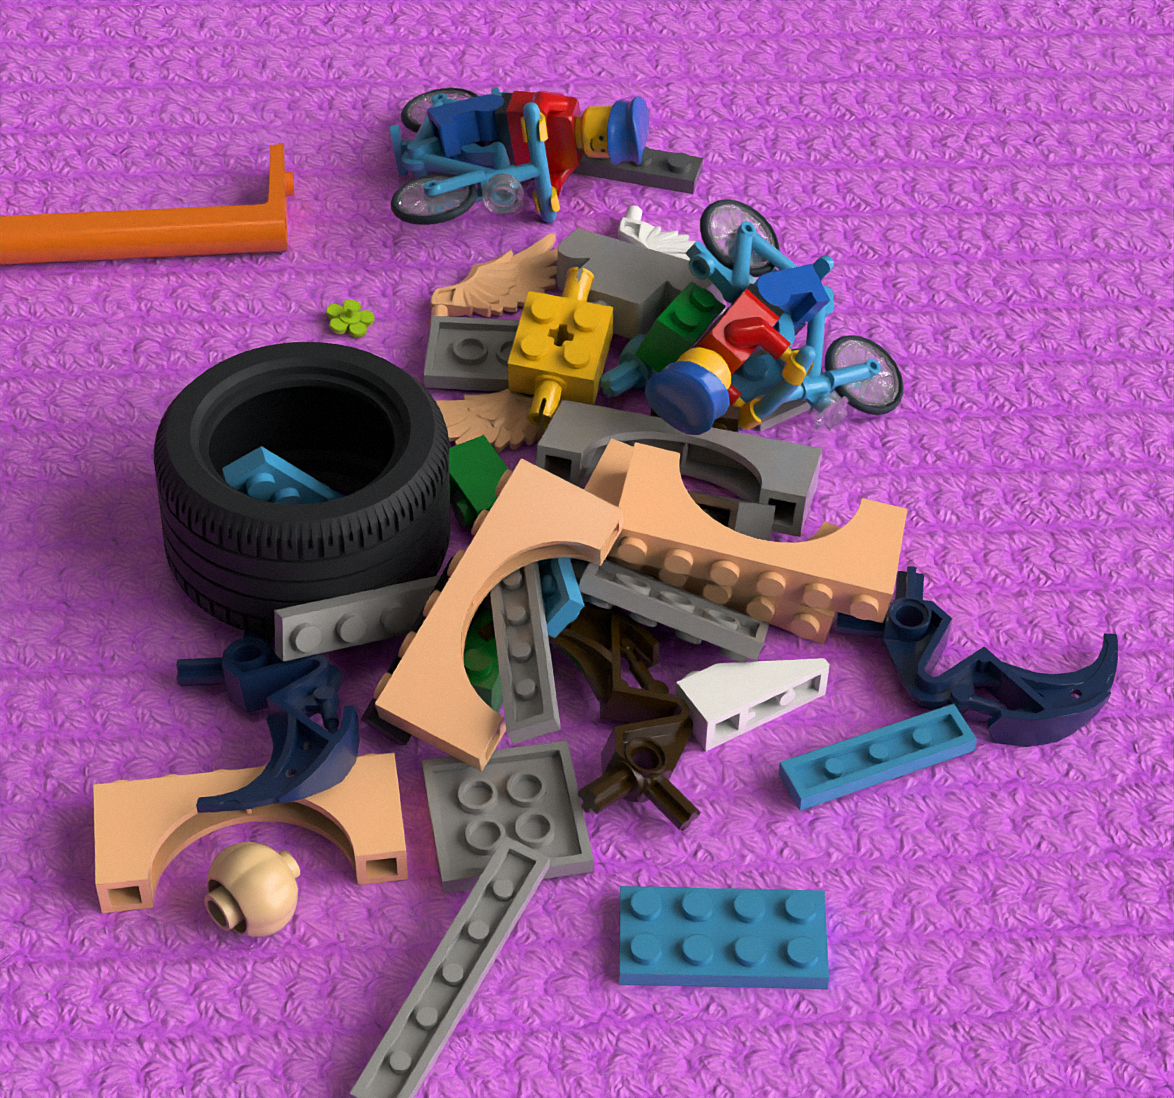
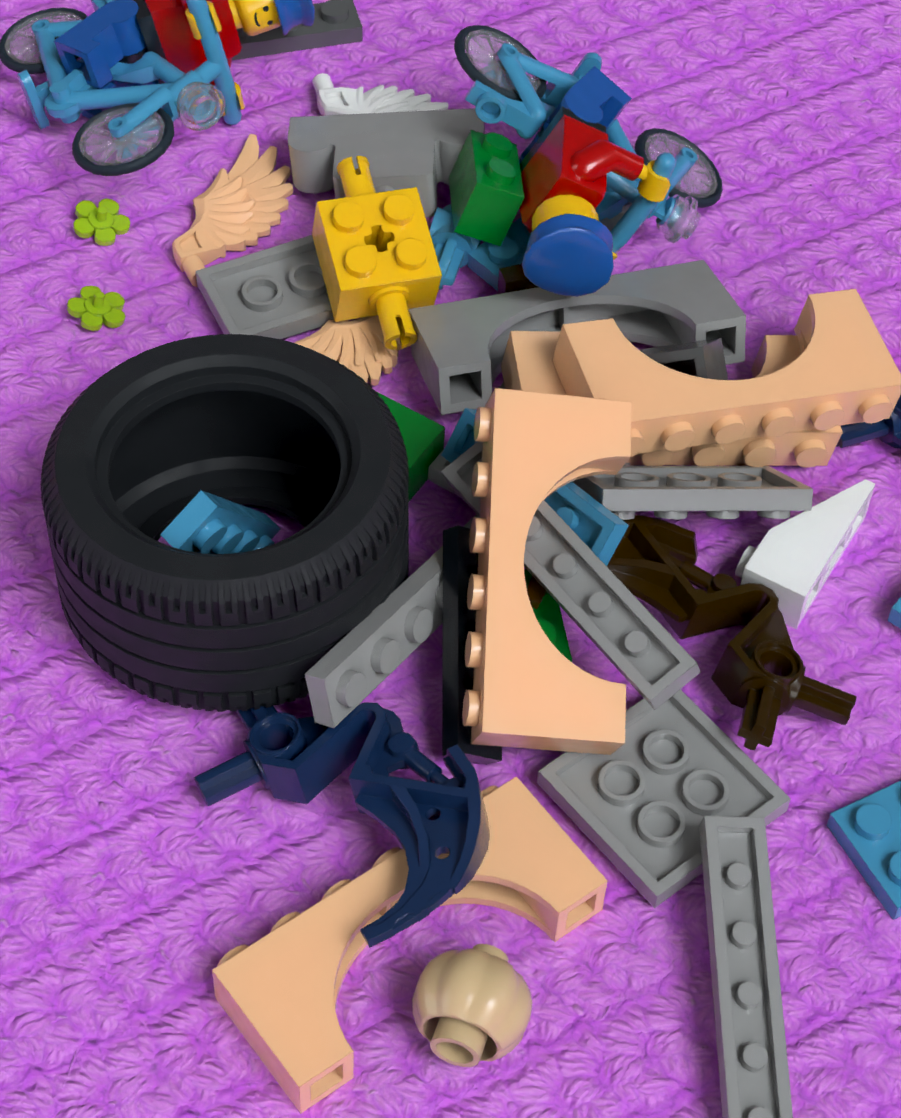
camera: 30 degrees left, 5 degrees up
(396, 257) = (101, 221): none -> lime plant

